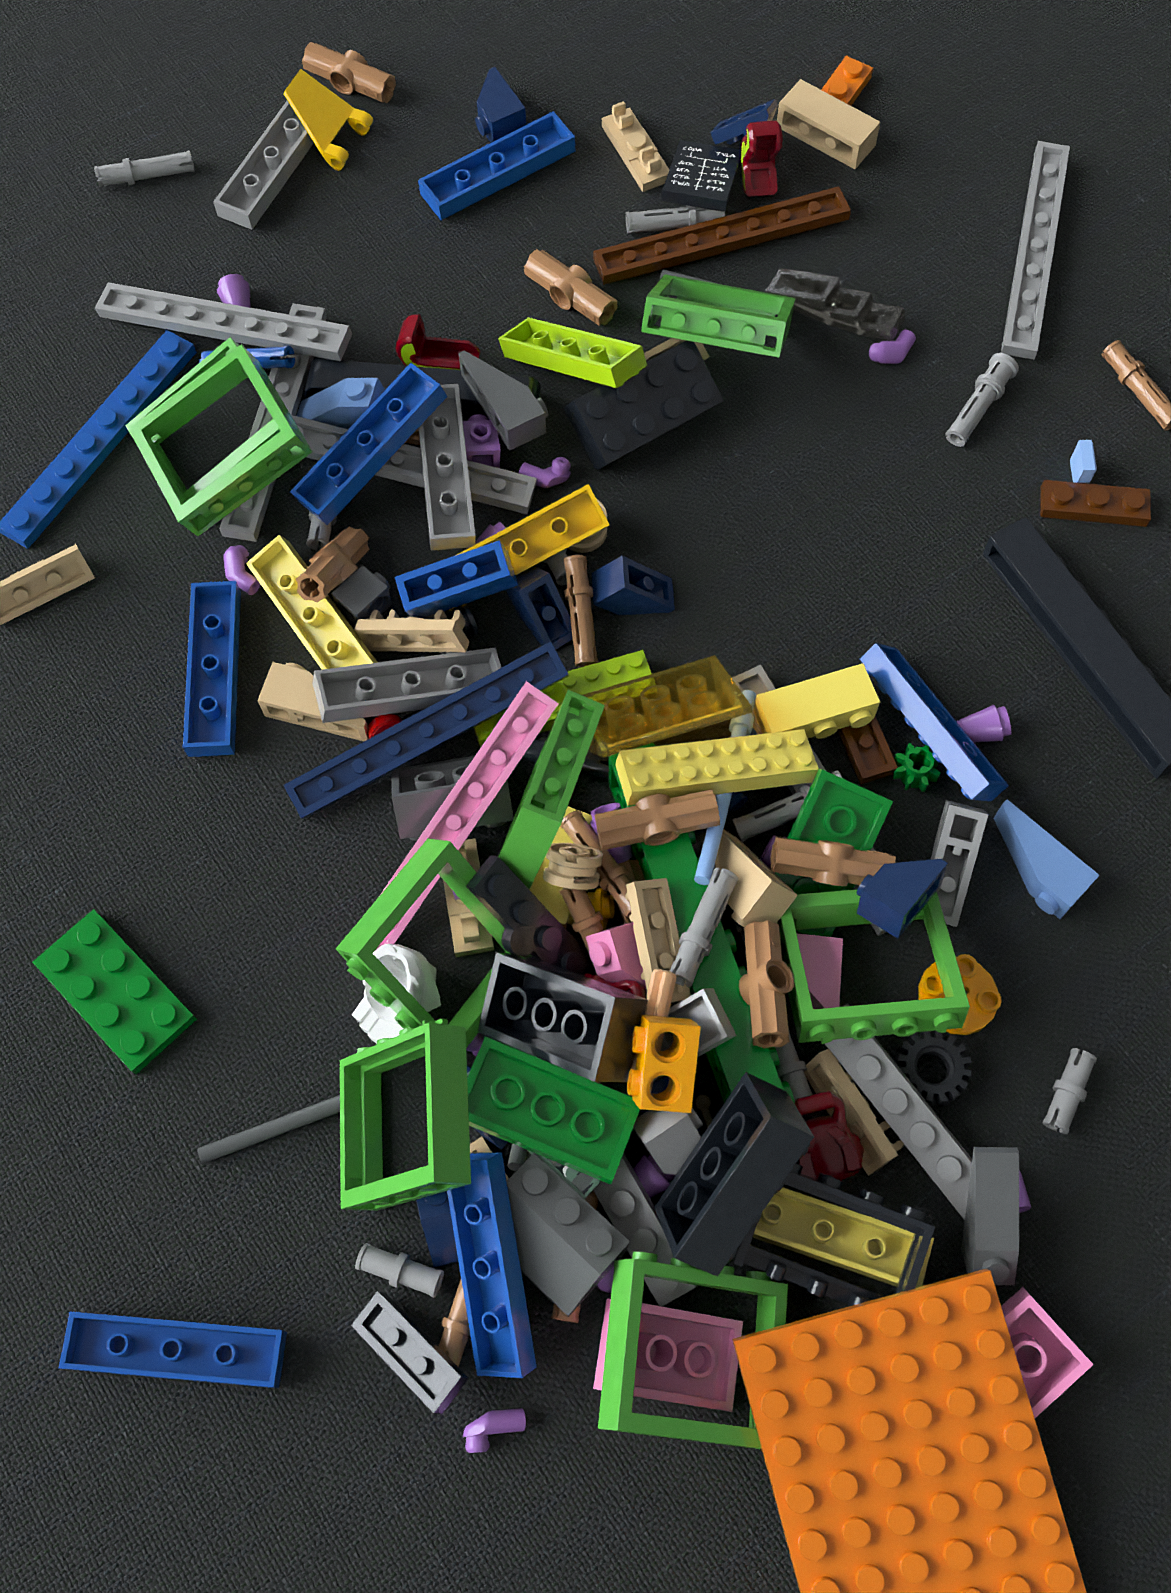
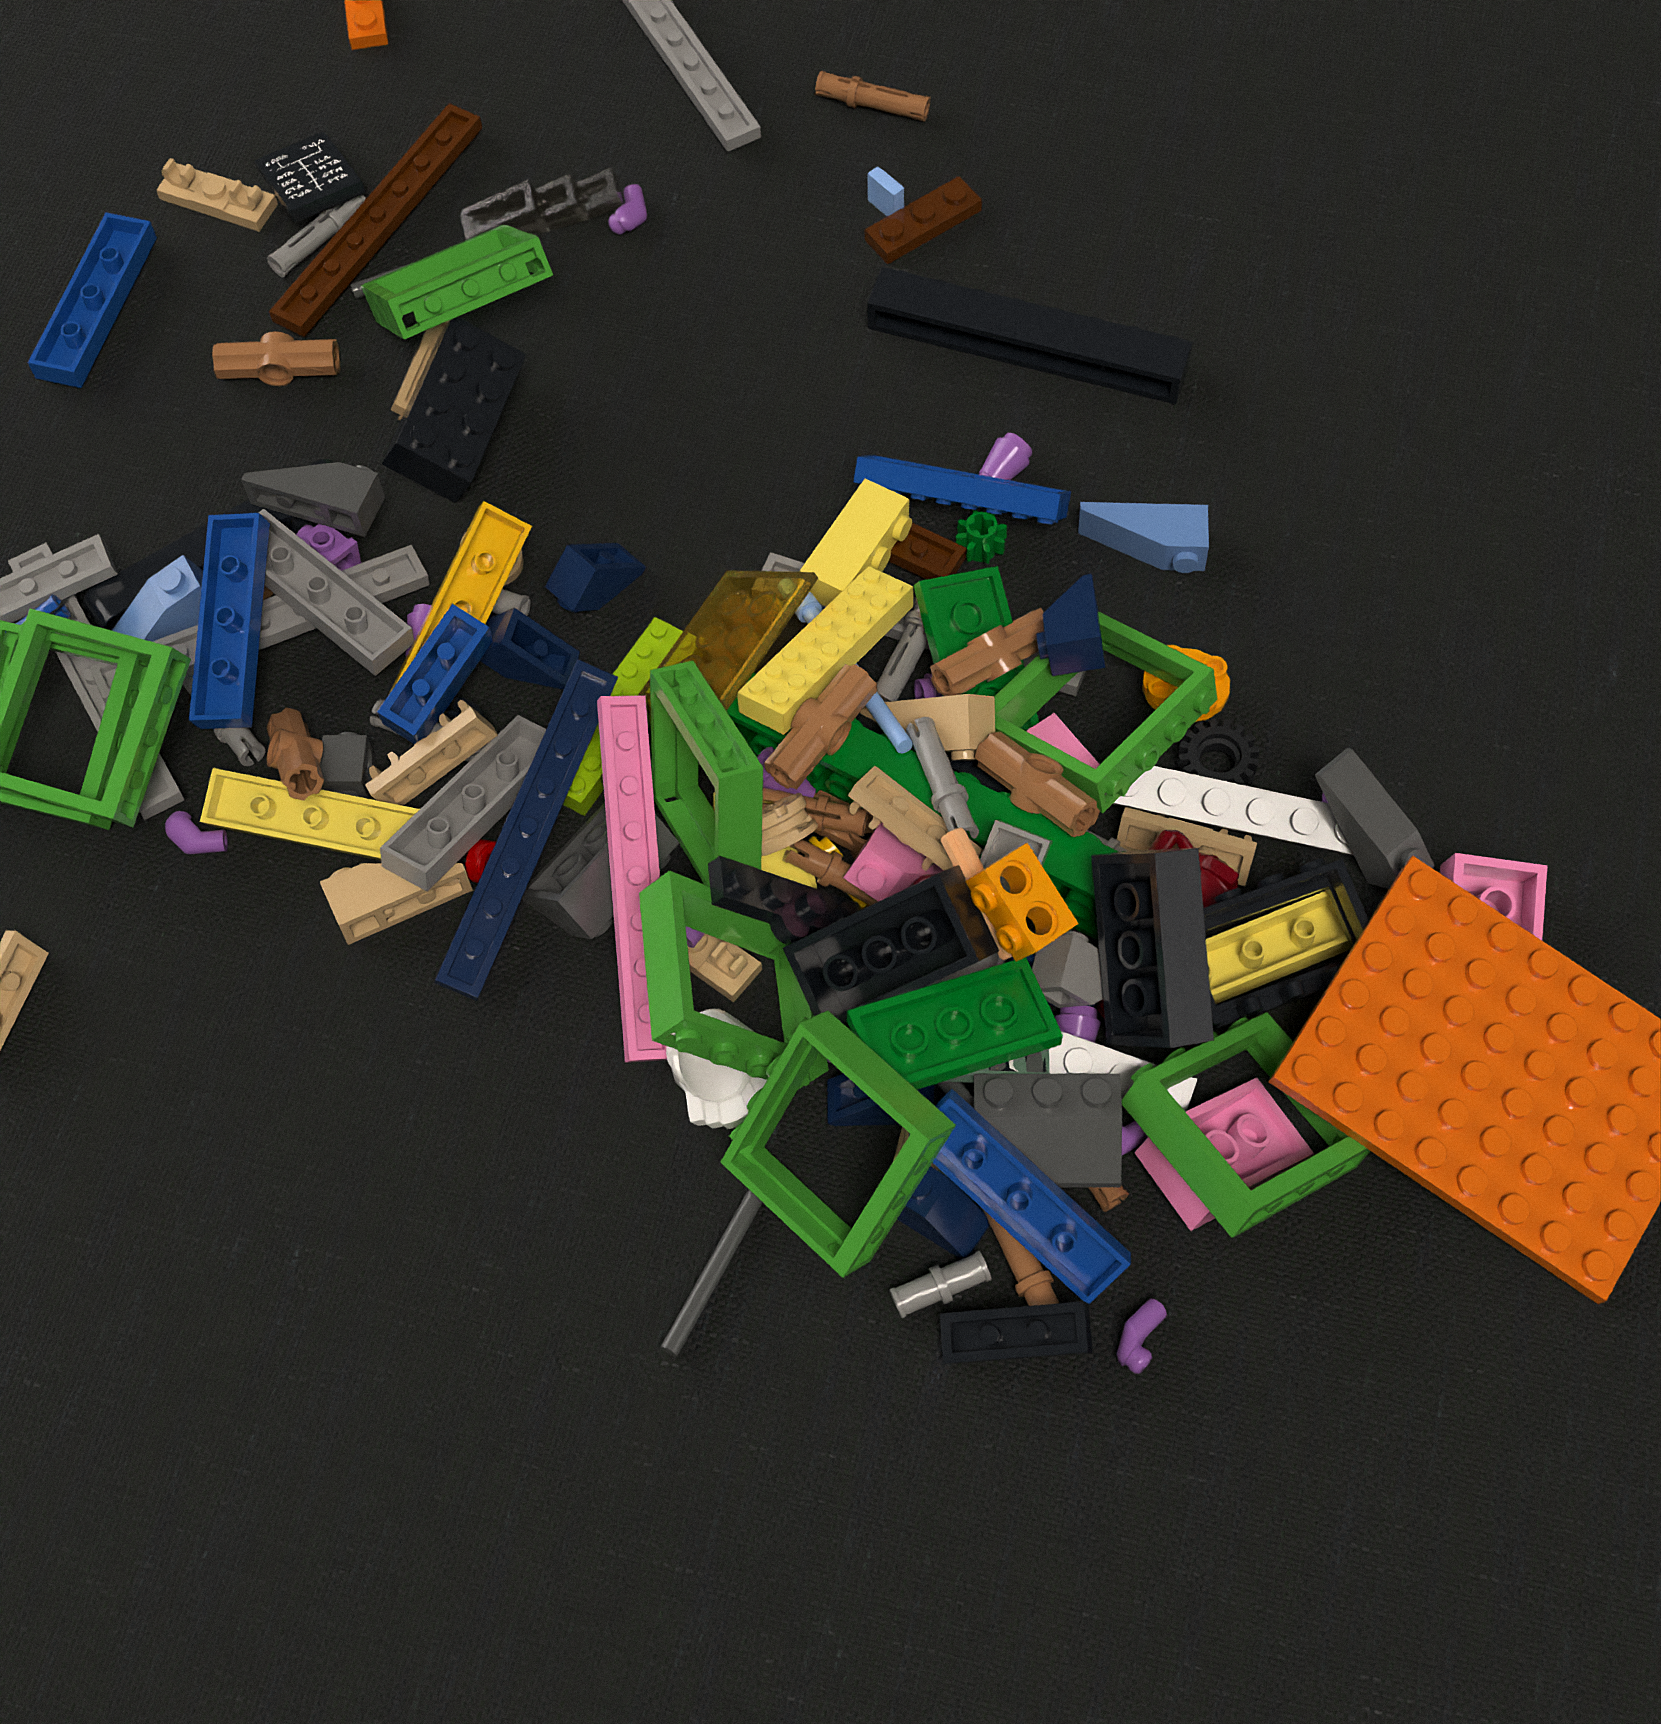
camera: 40 degrees left, 5 degrees down
(114, 991) = (444, 1287): green plate -> none
(173, 1349) = (807, 1520): blue piece -> none
(212, 669) = (258, 939): blue piece -> none
(430, 352) = (191, 510): dark red animal -> none
(498, 108) = (47, 246): dark blue slope -> none
(550, 476) = (420, 534): medium lavender arm -> none
(573, 352) = (346, 406): lime piece -> none
(579, 598) = (552, 612): medium nougat pin -> none
(734, 128) = (314, 97): dark blue slope -> none
(758, 155) = (349, 124): dark red animal -> none
(828, 124) = (384, 56): tan brick -> none
(958, 845) = (1067, 557): light grey slope -> none
(987, 389) = (746, 187): light grey pin -> none
(1069, 1091) = (1336, 691): light grey pin -> none

